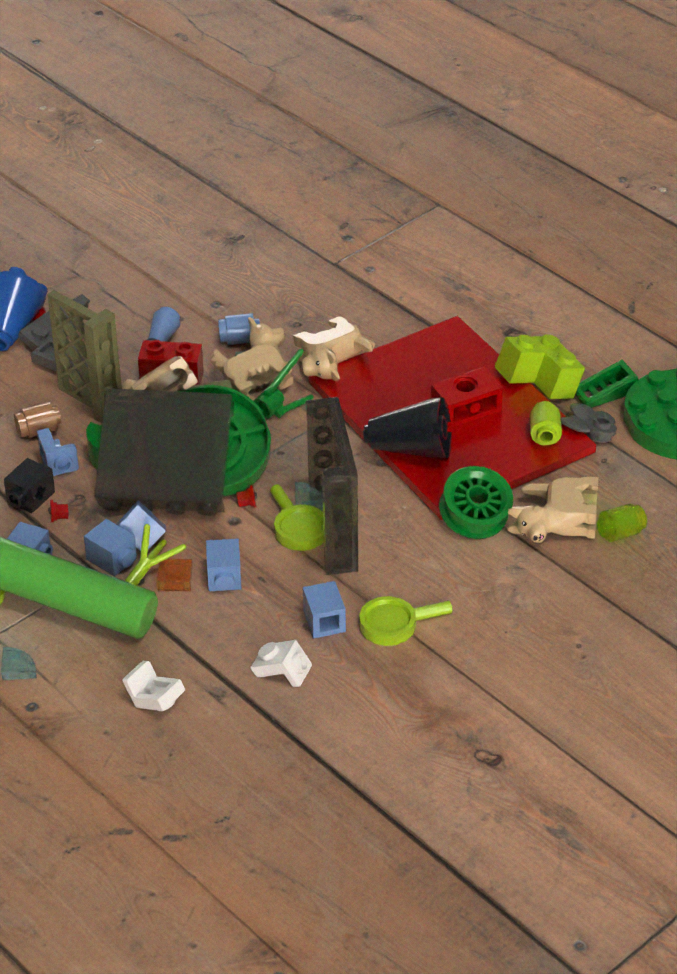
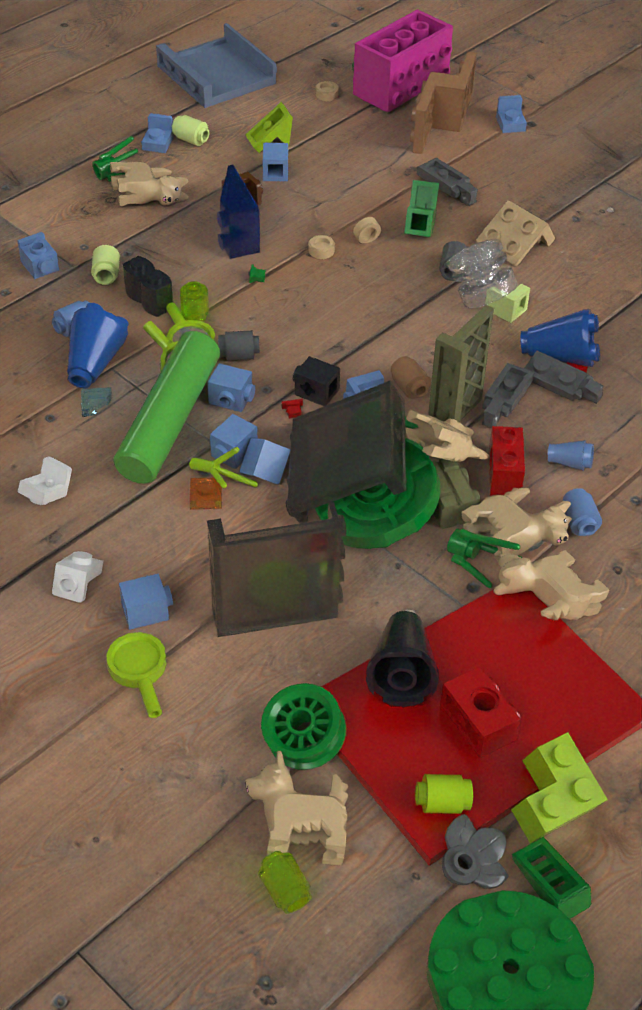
camera: 85 degrees right, 5 degrees up
(223, 564) = (201, 511): medium blue brick -> none

